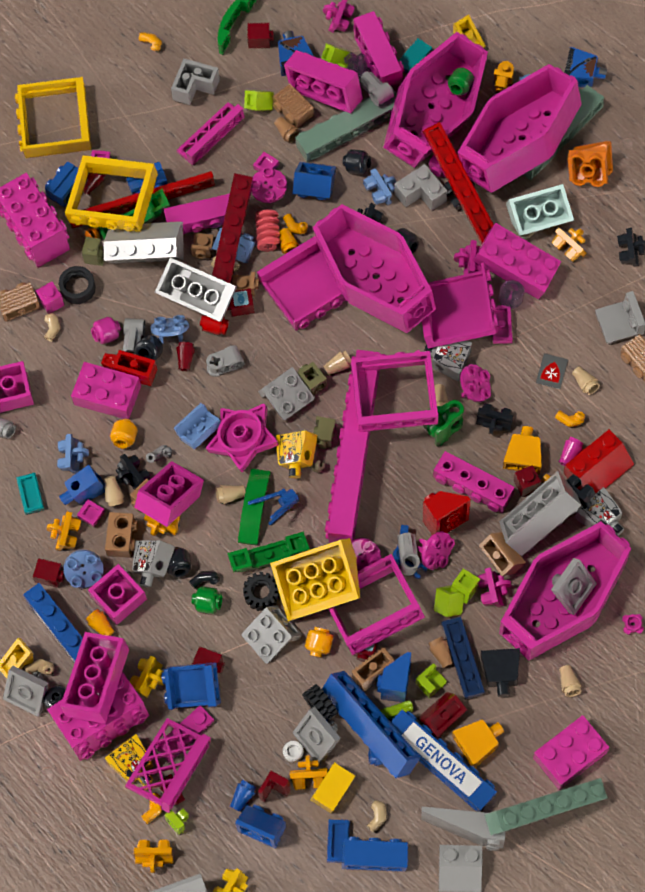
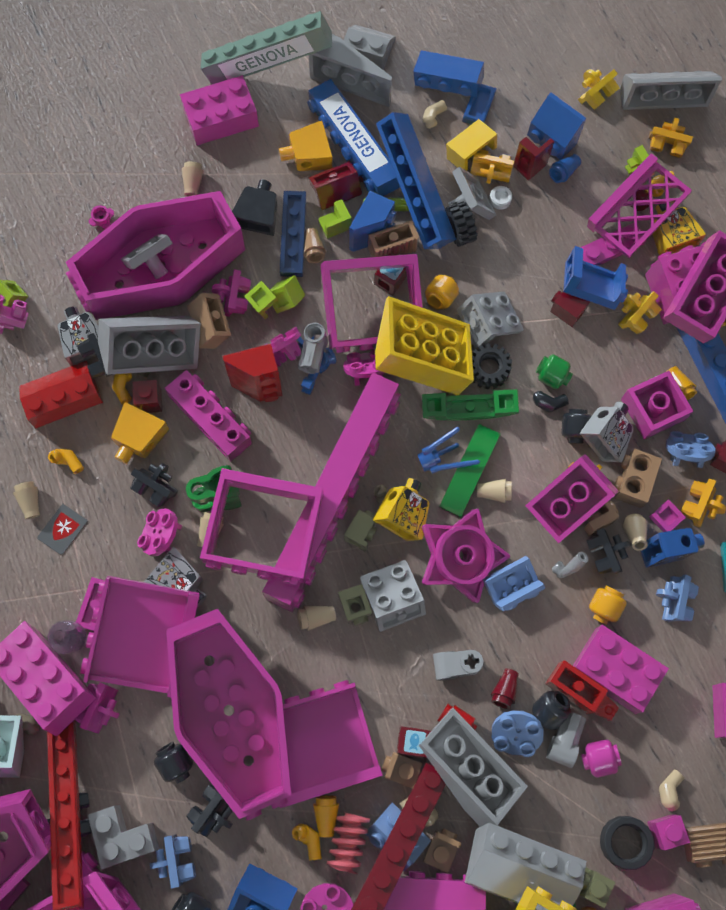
camera: 170 degrees left, 5 degrees up
(571, 449) = (82, 419): dark pink cone -> none

